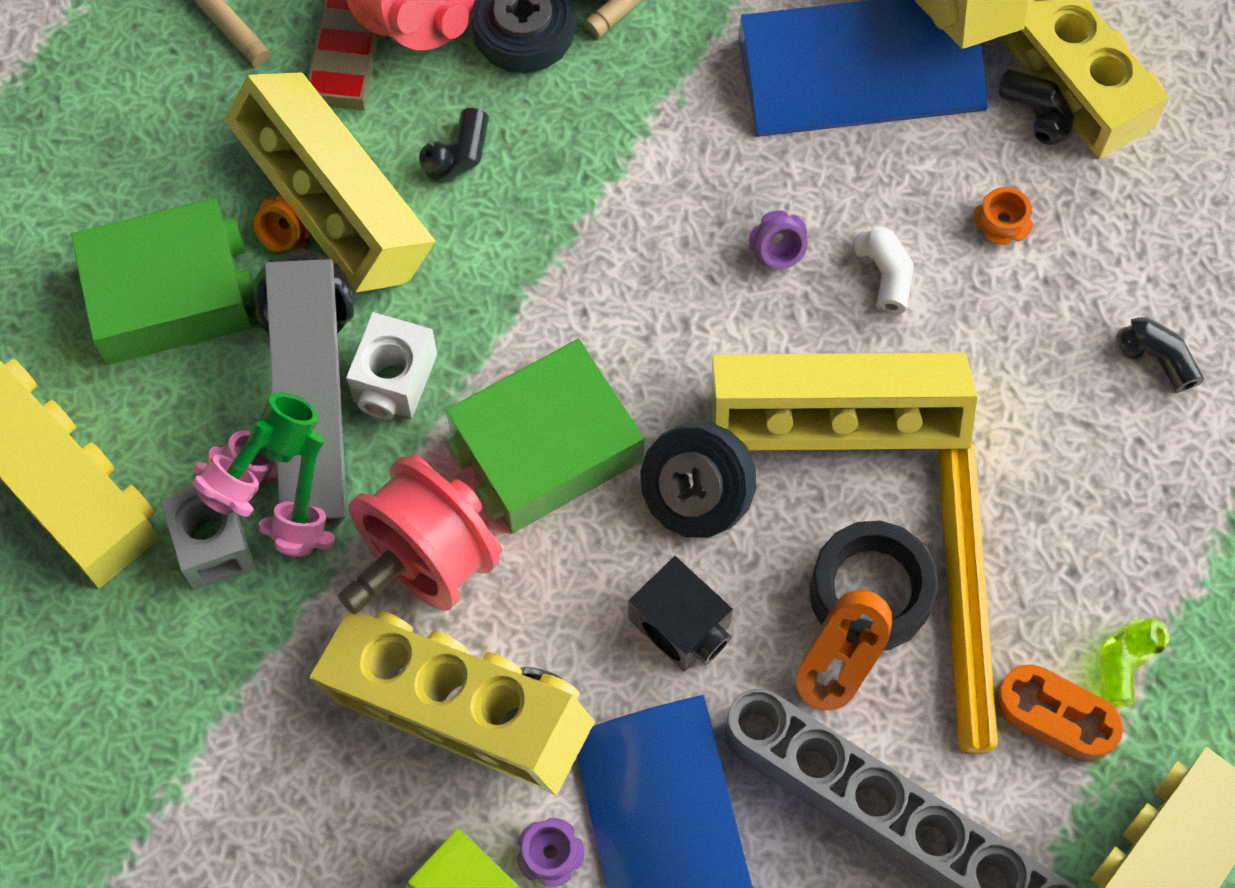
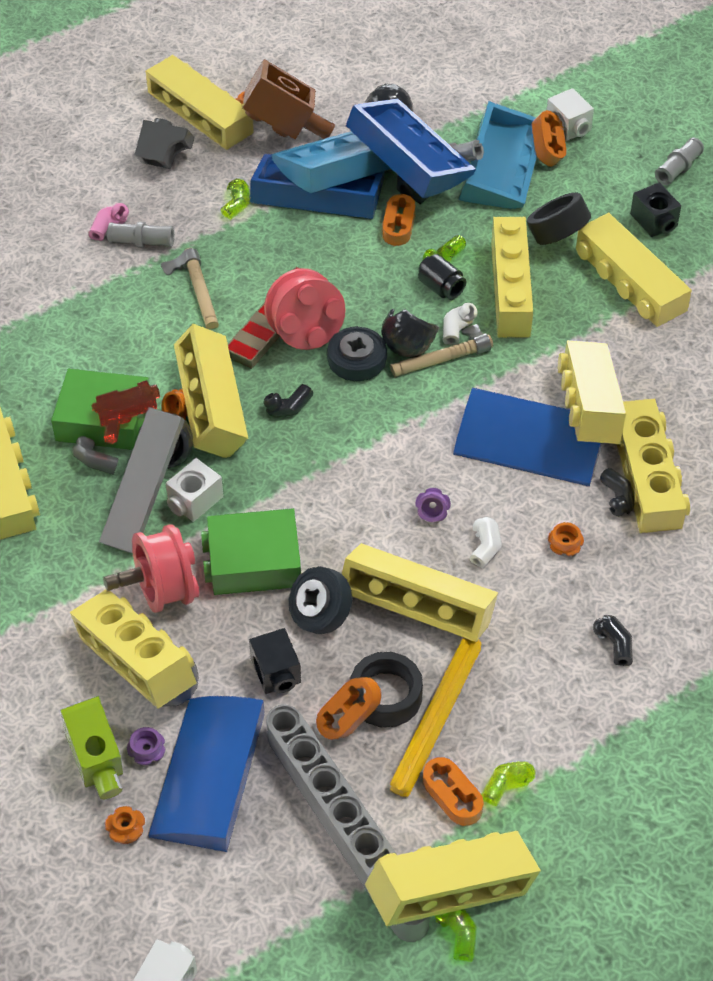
camera: 25 degrees right, 15 degrees down
(191, 376) = (99, 461): none -> dark grey arm
(200, 274) = (120, 407): none -> clear red piece
(207, 559) = (59, 532): light grey brick -> none
(252, 458) = (95, 507): plant -> none

